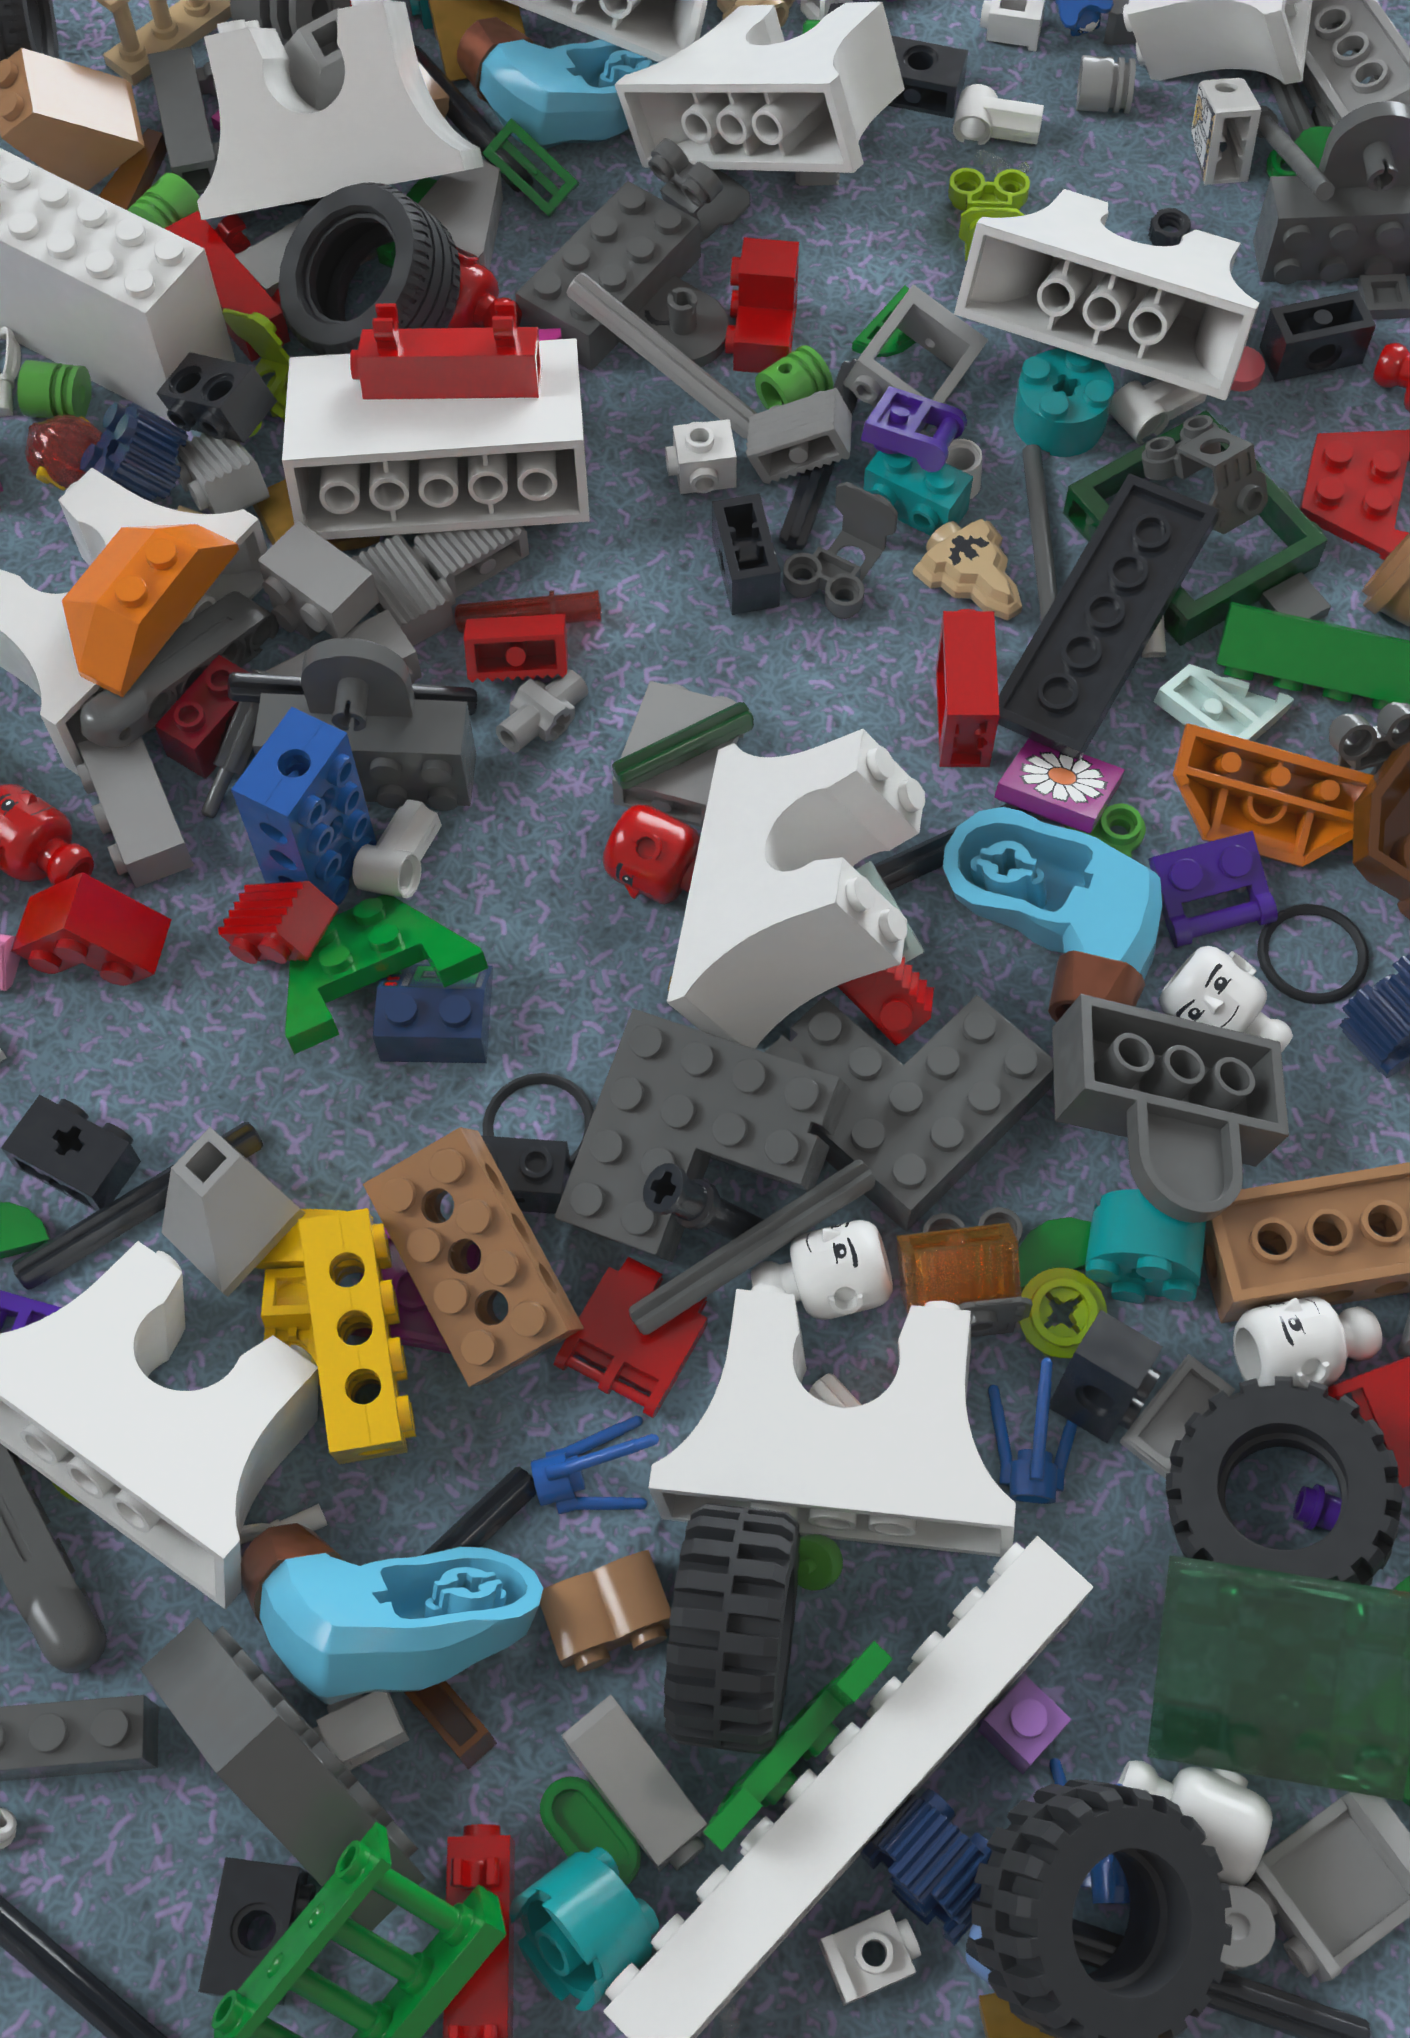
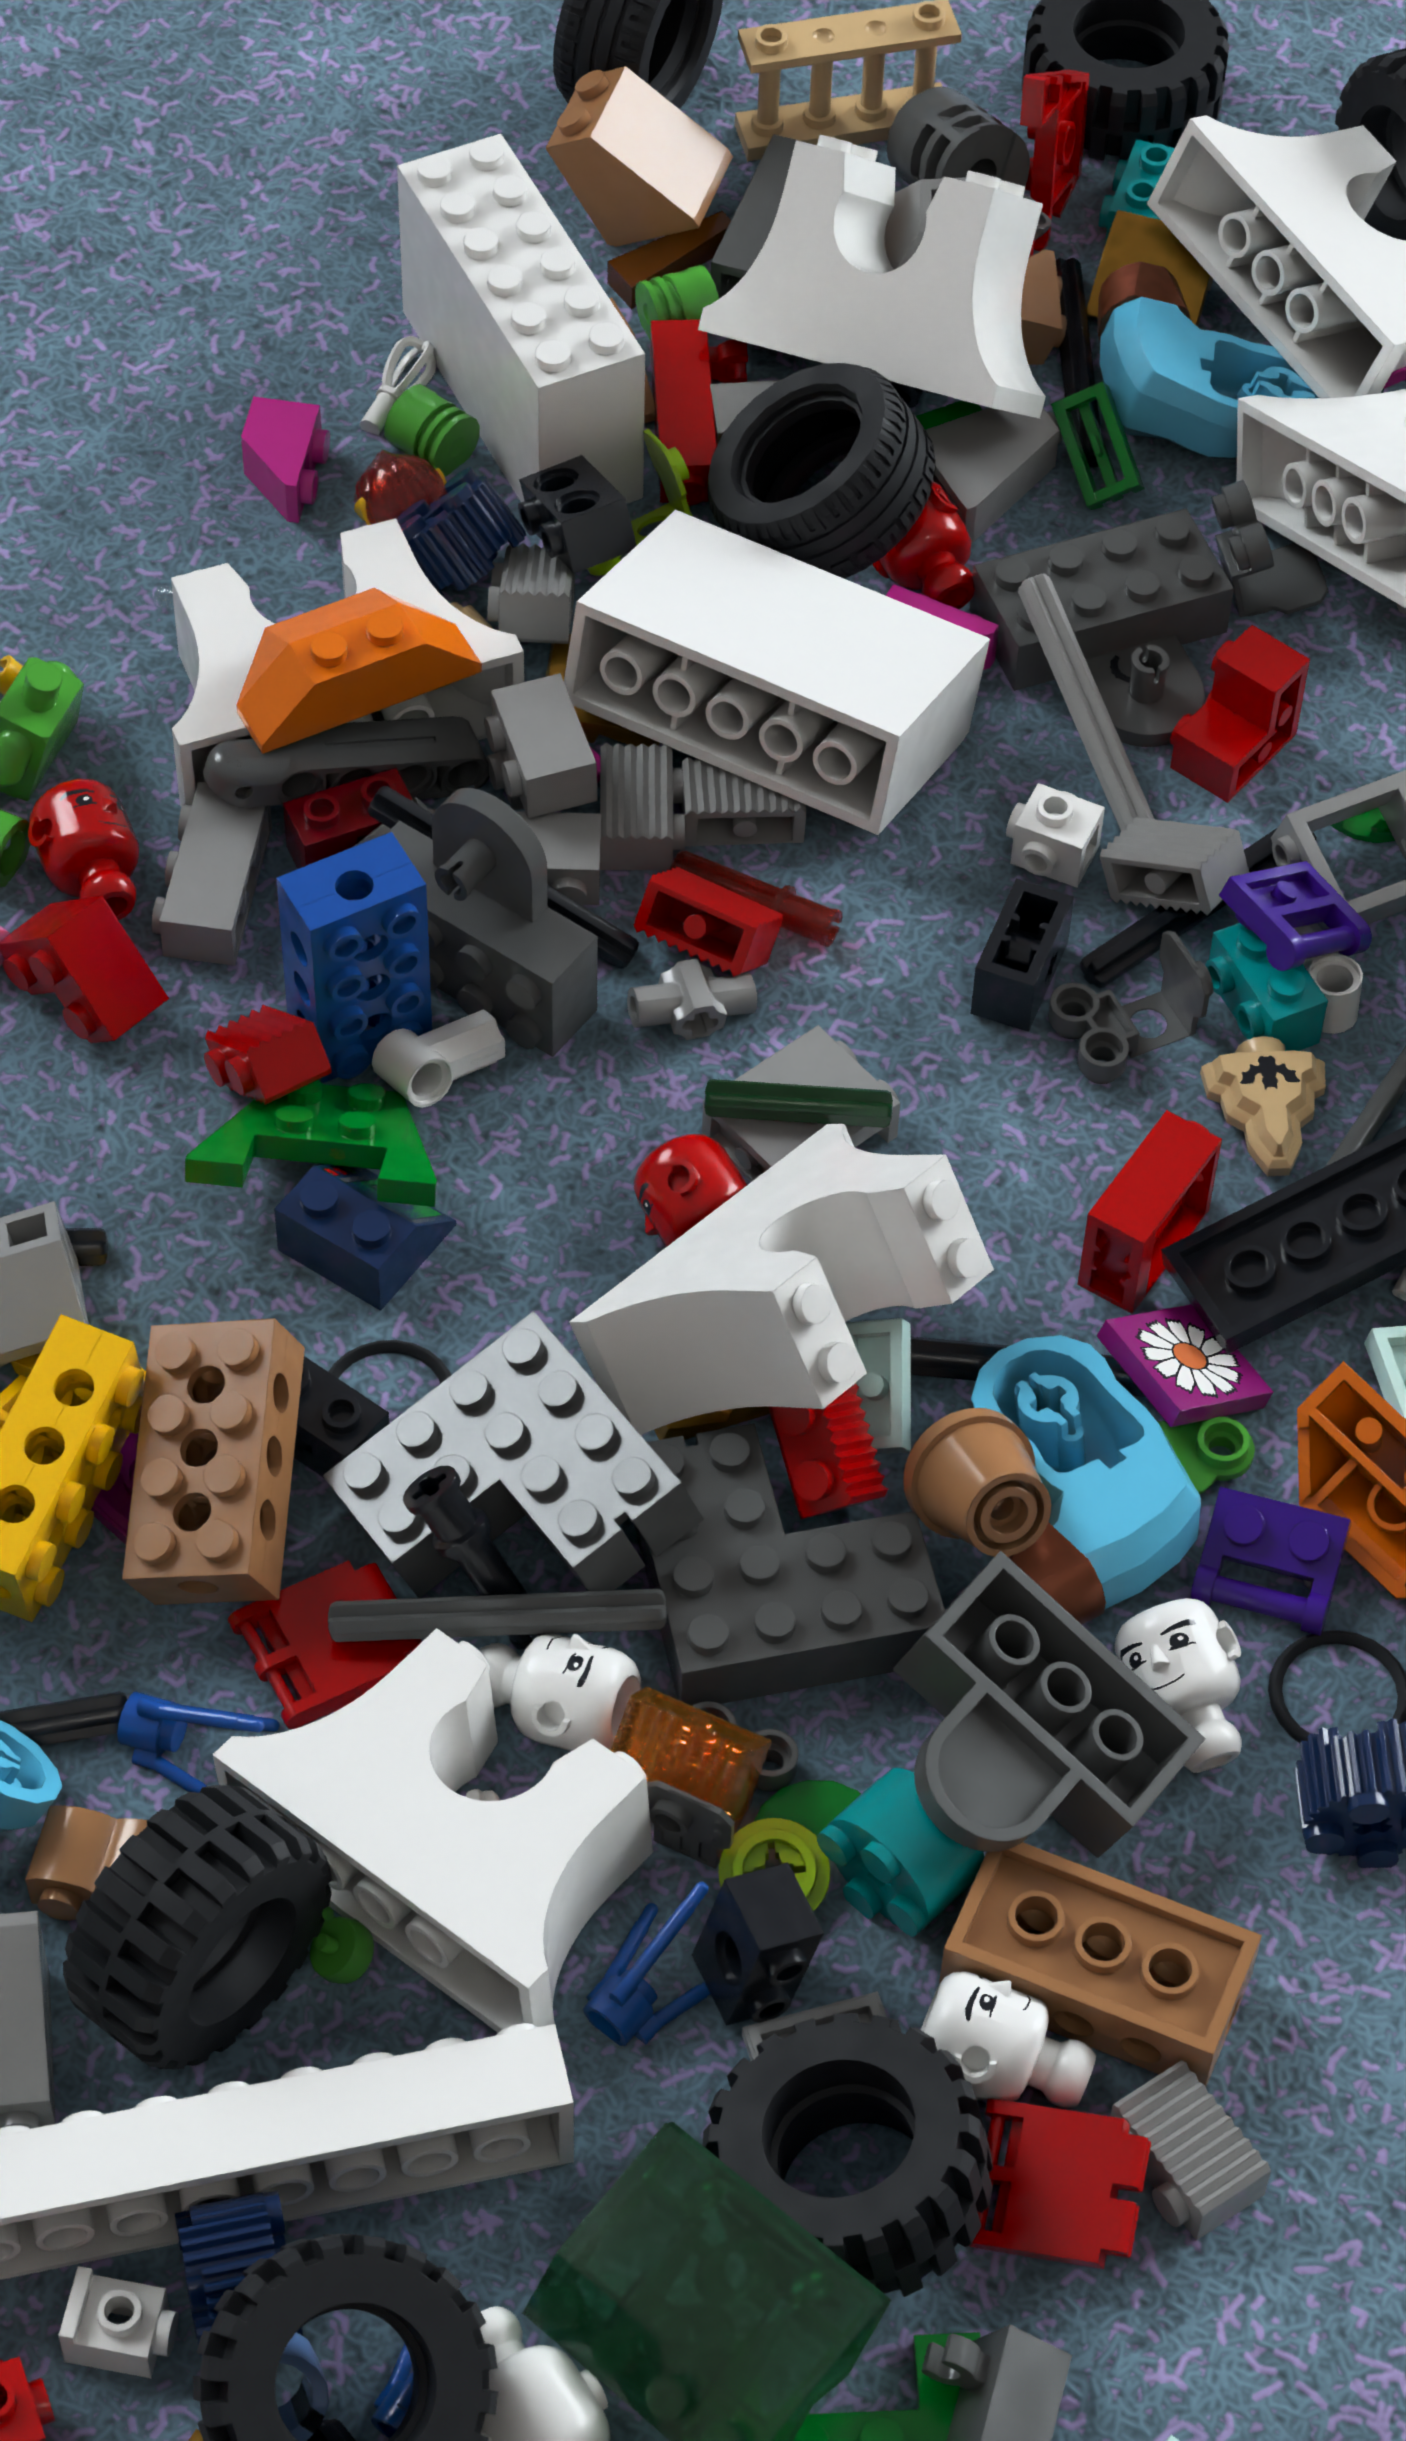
camera: 30 degrees right, 10 degrees down
(447, 360) = (821, 590): red brick -> none
(793, 378) = (1220, 803): bright green piece -> none
(802, 1737) = (180, 2071): green wing -> none
(1021, 952) = (978, 1482): none -> medium nougat piece
(1024, 1724) = (429, 2210): medium lavender brick -> none

